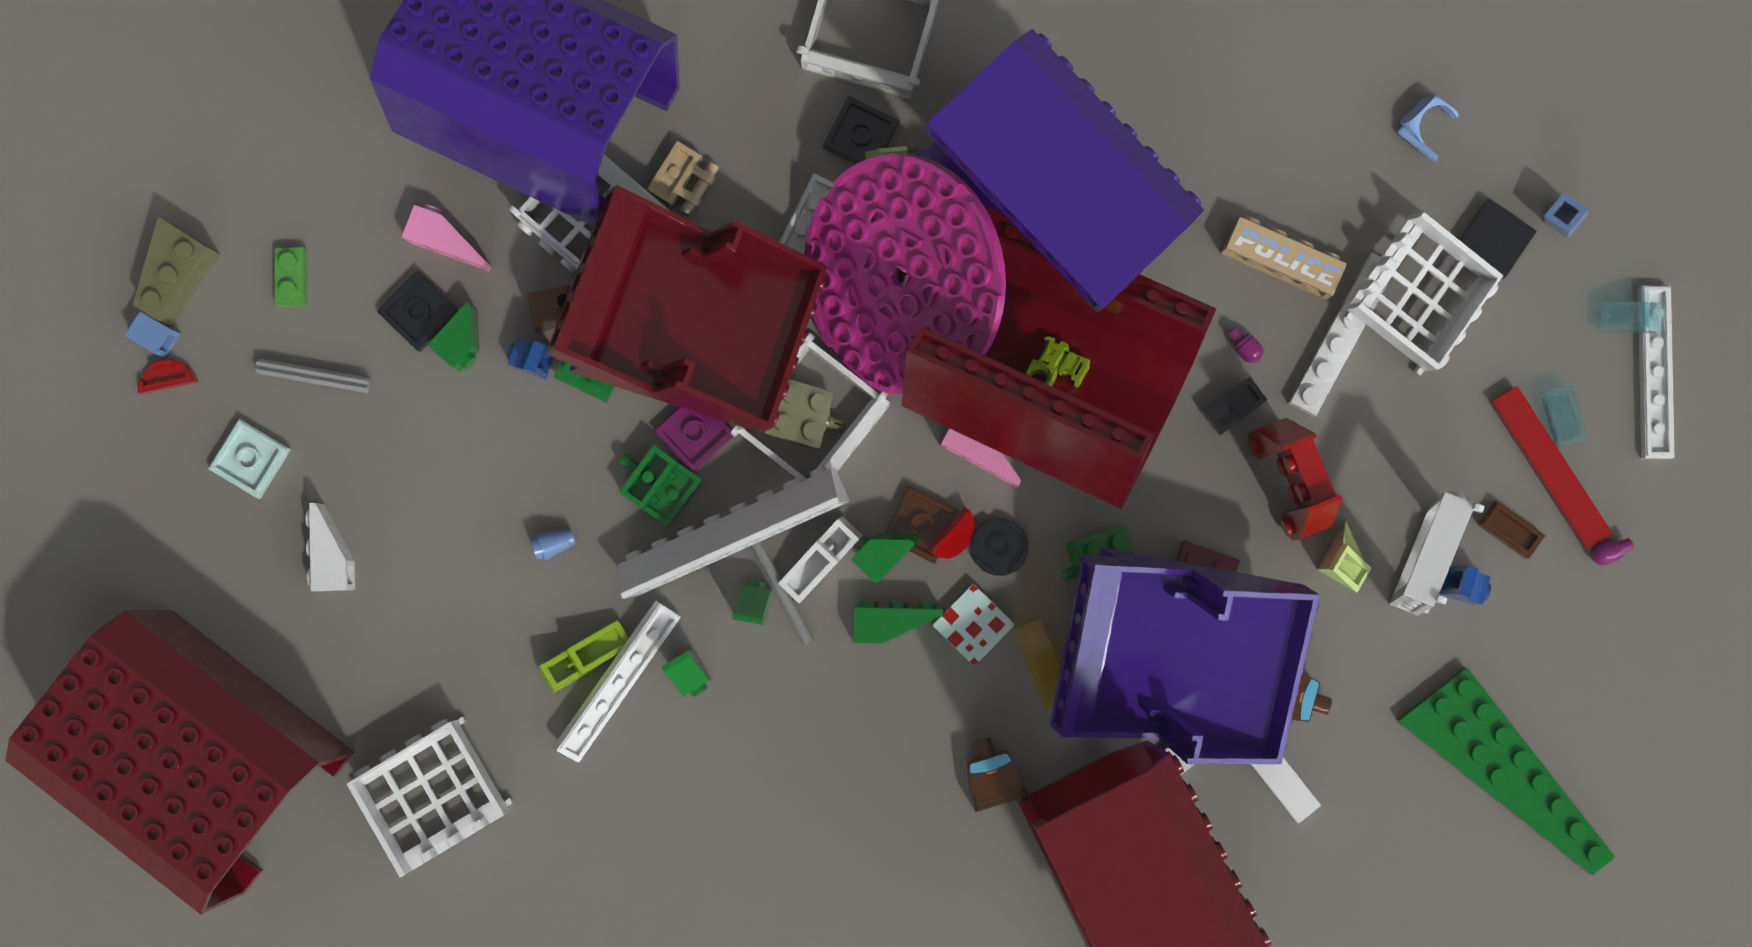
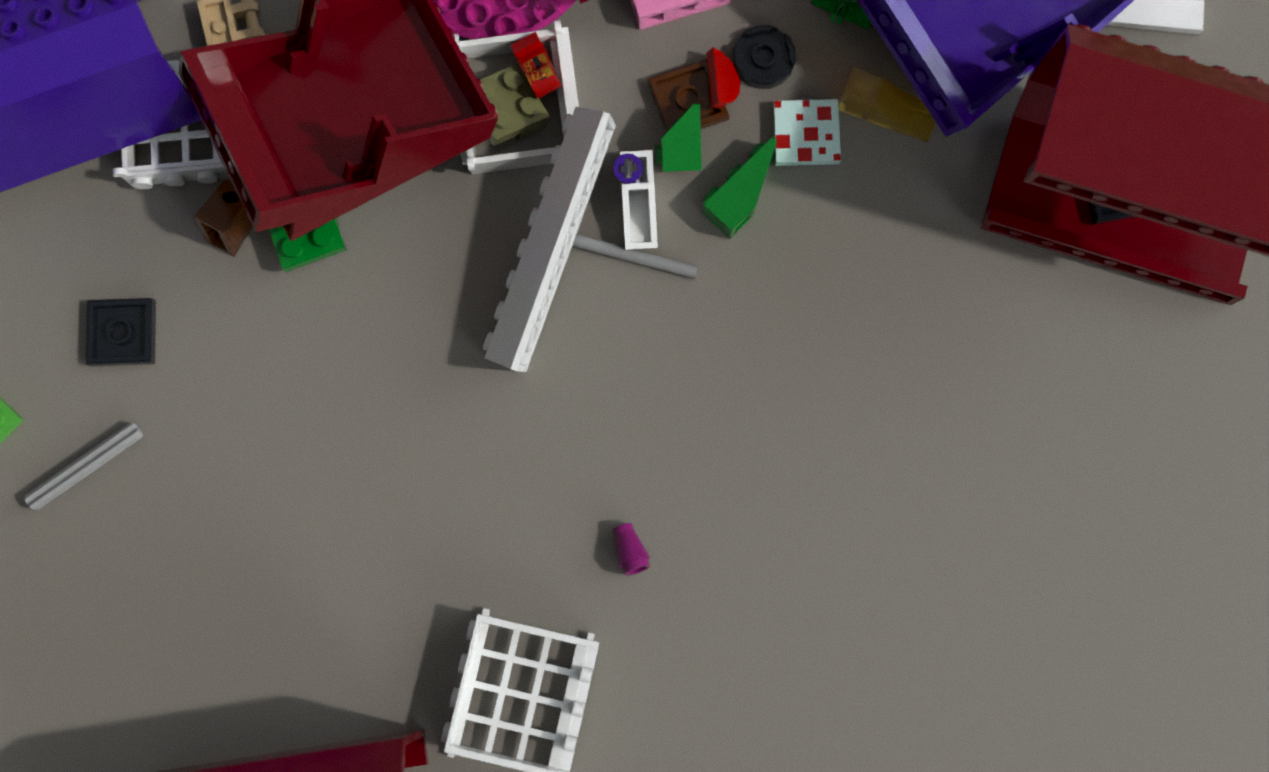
camera: 40 degrees left, 5 degrees down
(249, 459) = (97, 584): light aqua tile -> none
(330, 560) = (249, 595): white slope -> none
(435, 233) = (76, 256): bright pink slope -> none
(459, 339) = (175, 320): green slope -> none
(530, 358) = (248, 273): blue arch -> none
(551, 543) = (413, 401): medium blue cone -> none
(583, 657) = (532, 461): lime slope -> none
(585, 776) = (630, 551): none -> magenta cone
(616, 681) = (578, 453): white tile -> none
(659, 485) = (452, 269): green plate -> none
(687, 673) = (627, 386): green slope -> none
(693, 436) = (440, 205): magenta tile -> none
(752, 603) = (622, 283): green slope -> none
(831, 544) = (620, 162): none -> dark purple bush
(843, 408) = (536, 64): none -> red leg
(993, 777) = (944, 226): reddish brown torso -> none

